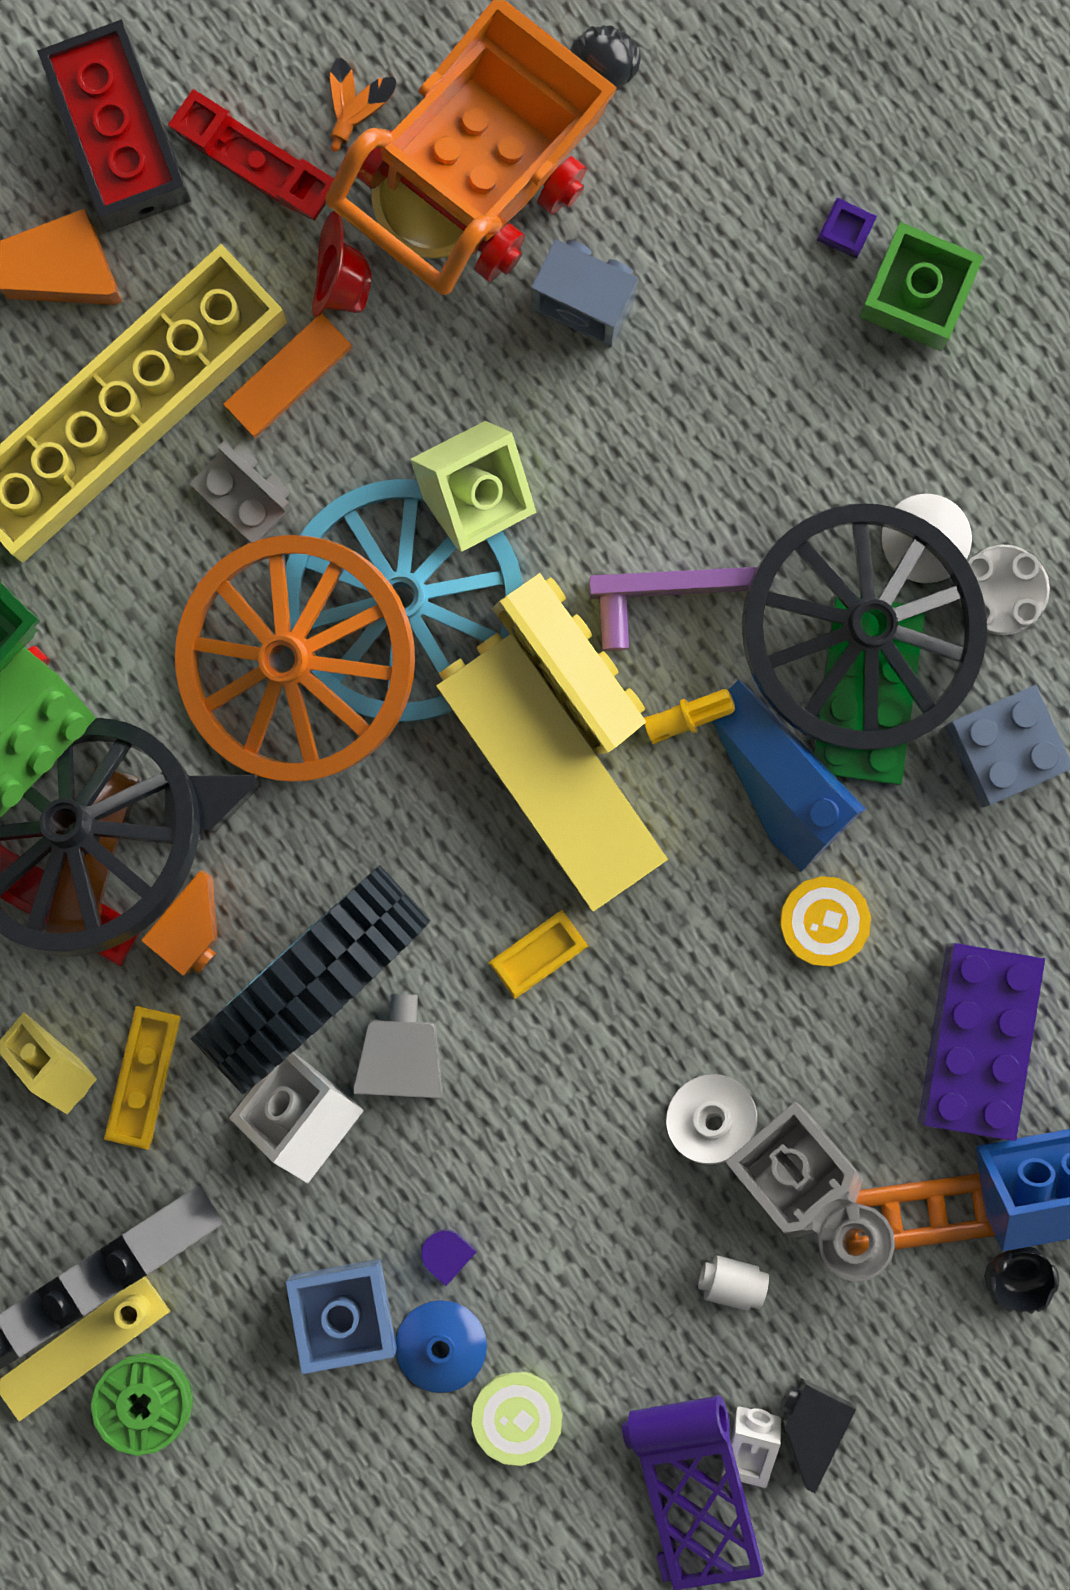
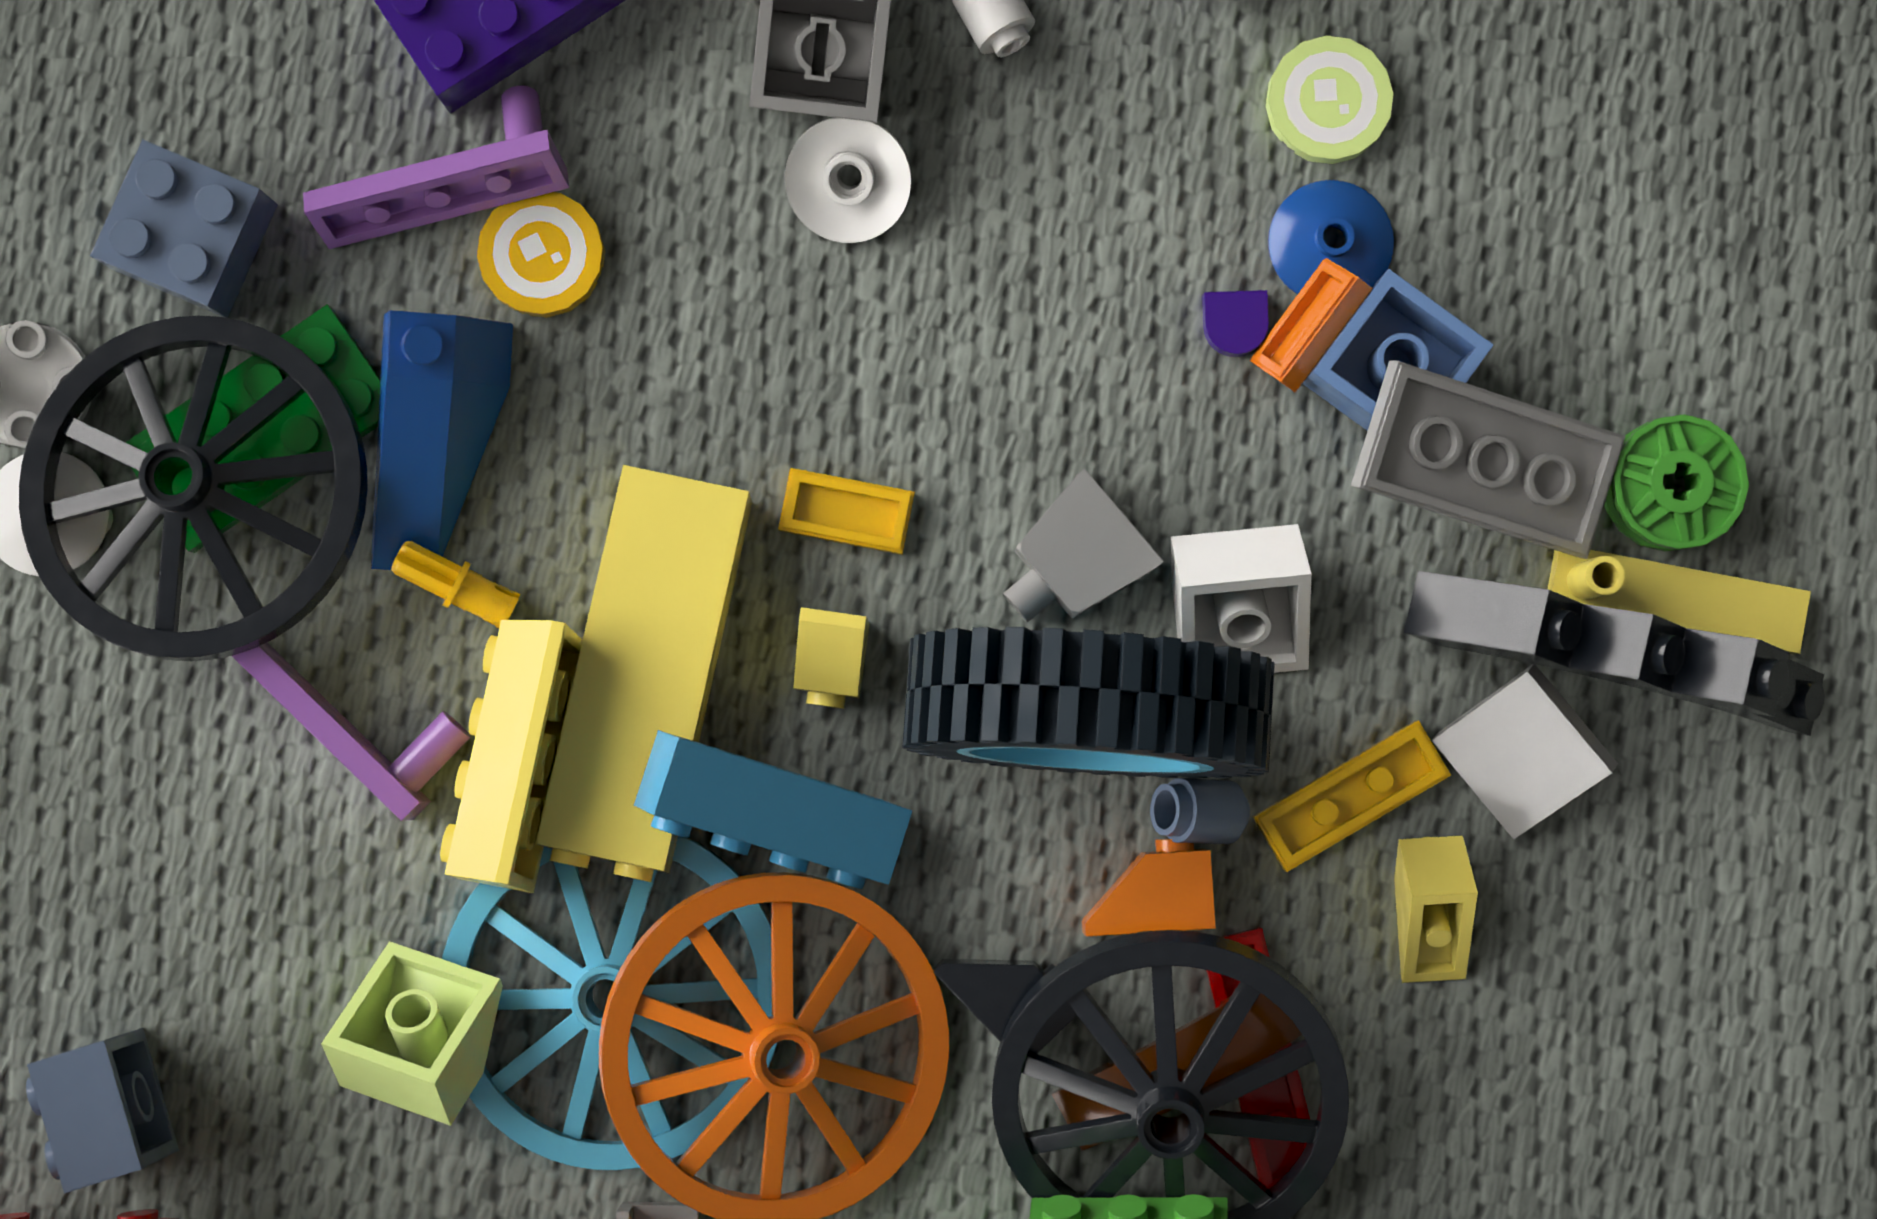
camera: 135 degrees left, 0 degrees up
(79, 1188) = (1524, 751): none -> tile
(208, 990) = (1200, 811): none -> sand blue brick
(245, 1313) = (1487, 459): none -> light grey tile
(405, 1290) = (1310, 324): none -> orange tile
(416, 769) = (771, 808): none -> dark azure brick
(467, 873) = (830, 656): none -> light yellow slope
(878, 949) = (445, 186): none -> medium lavender piece

